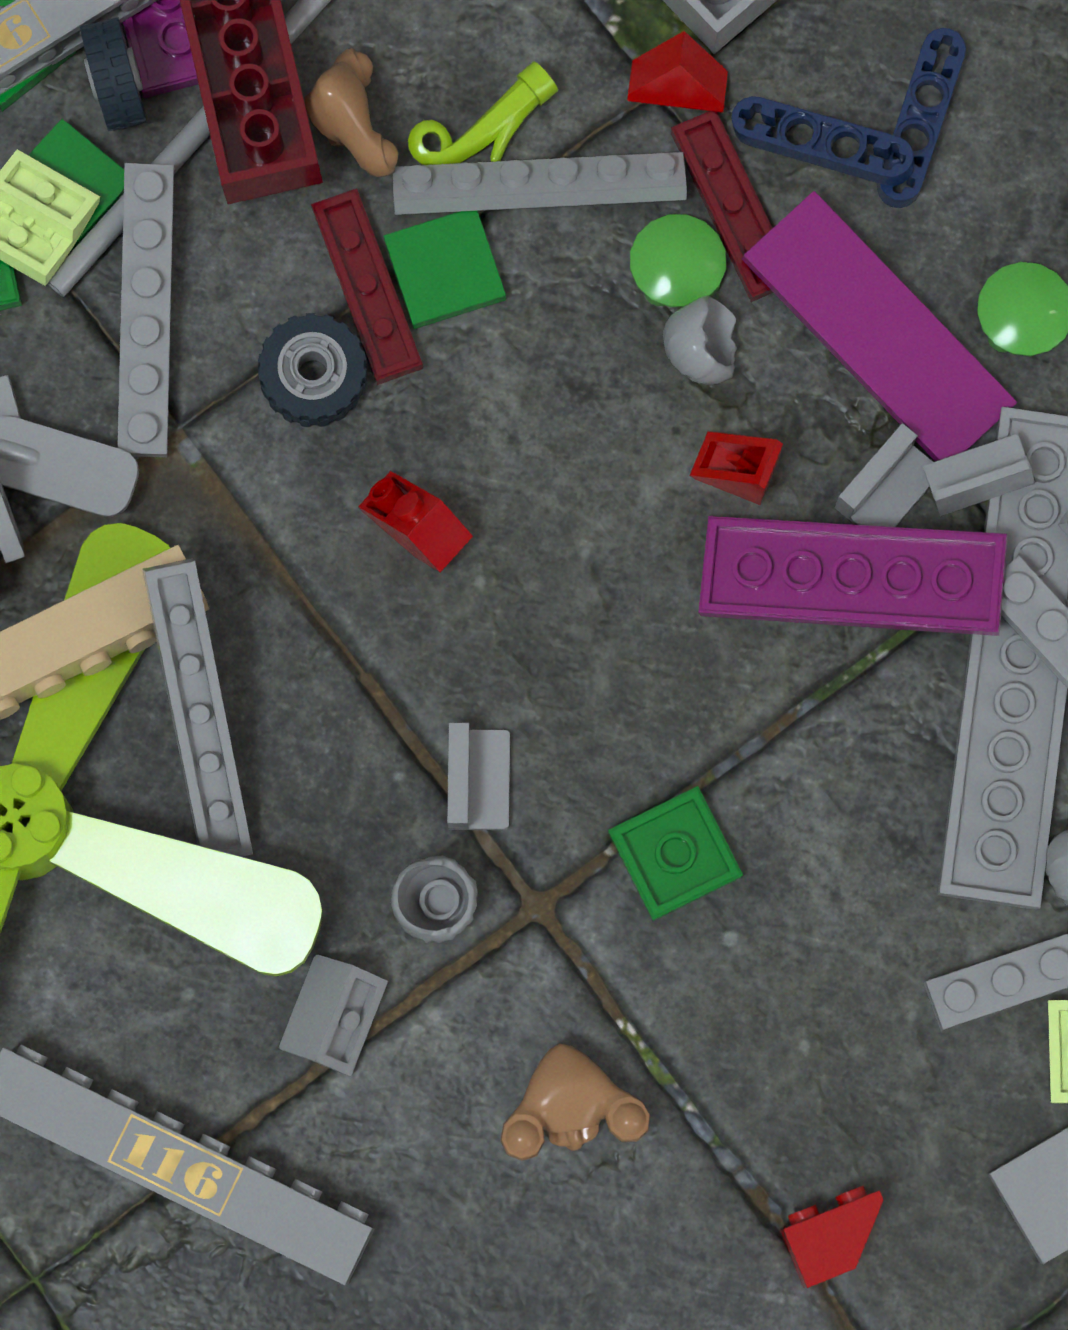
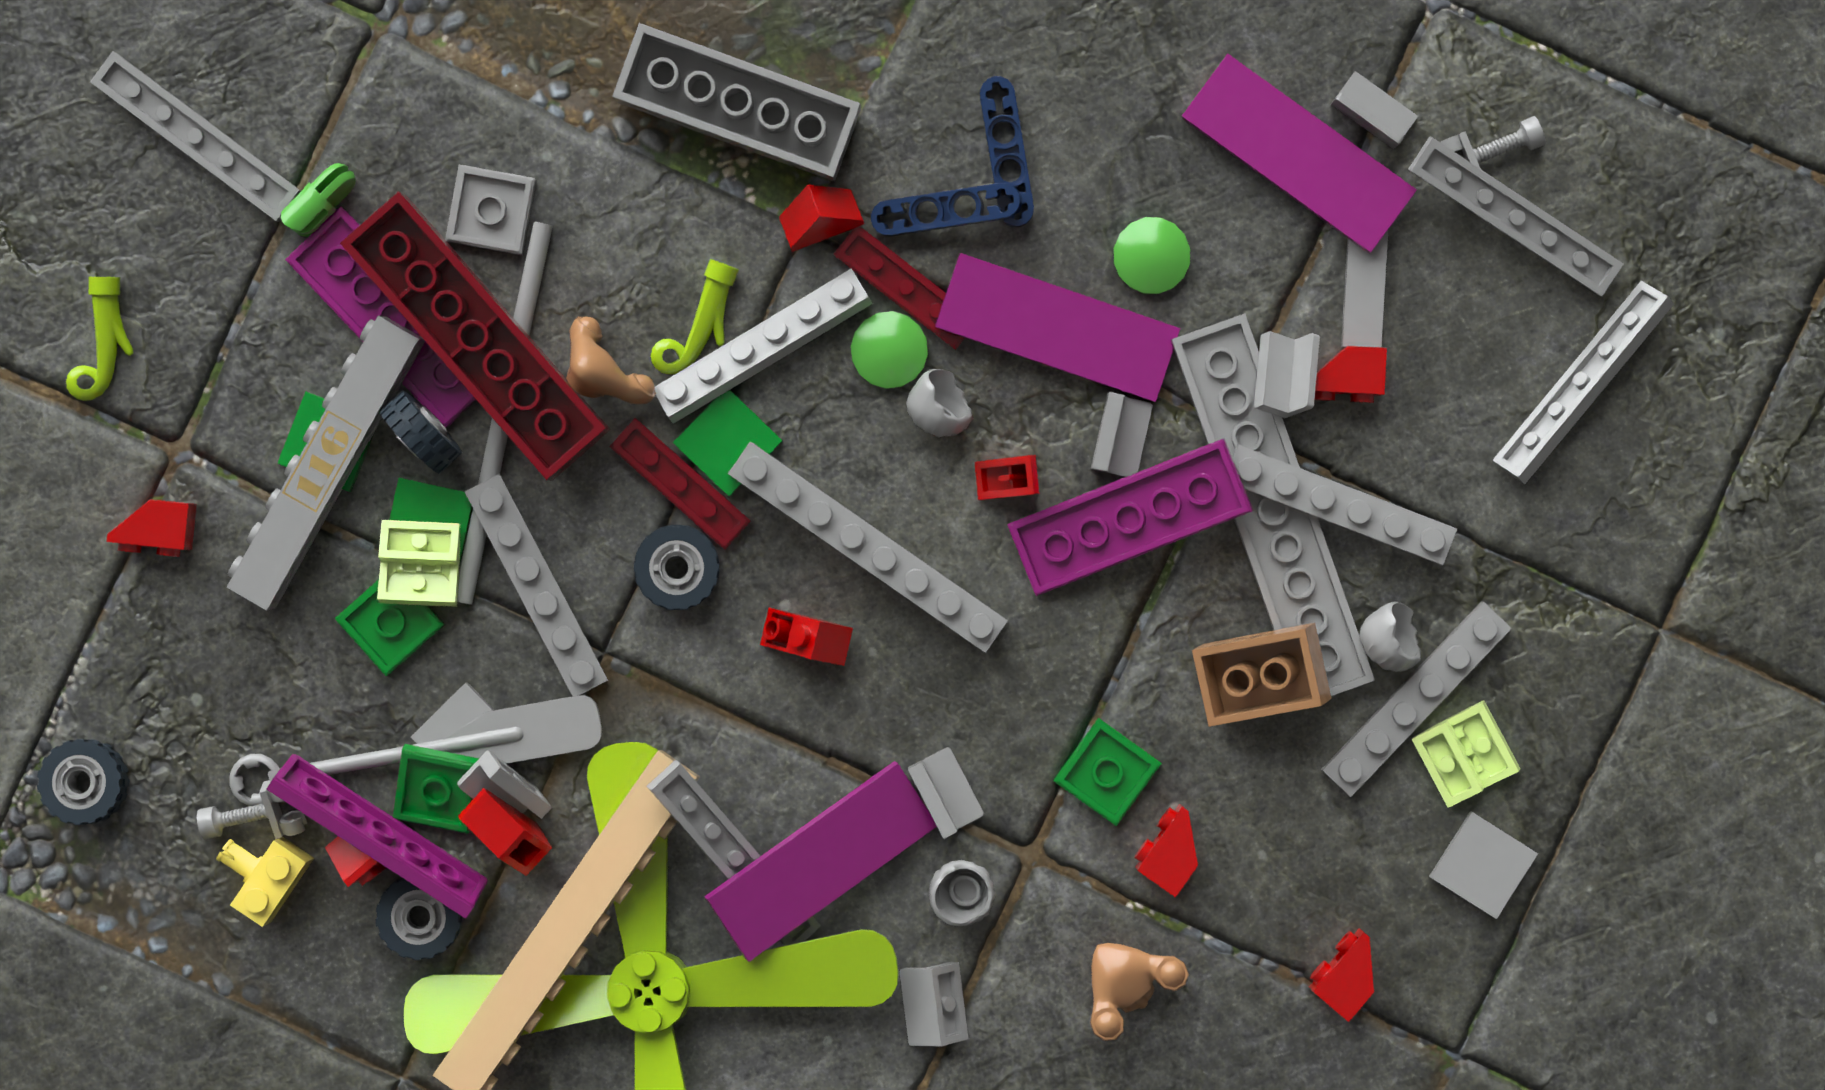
camera: 25 degrees left, 10 degrees up
(292, 773) = (821, 861): none -> magenta tile
(538, 454) = (867, 546): none -> light grey brick
(701, 985) = (1172, 854): none -> red slope
(914, 825) = (1261, 674): none -> medium nougat brick
(979, 474) = (1180, 398): light grey panel -> none

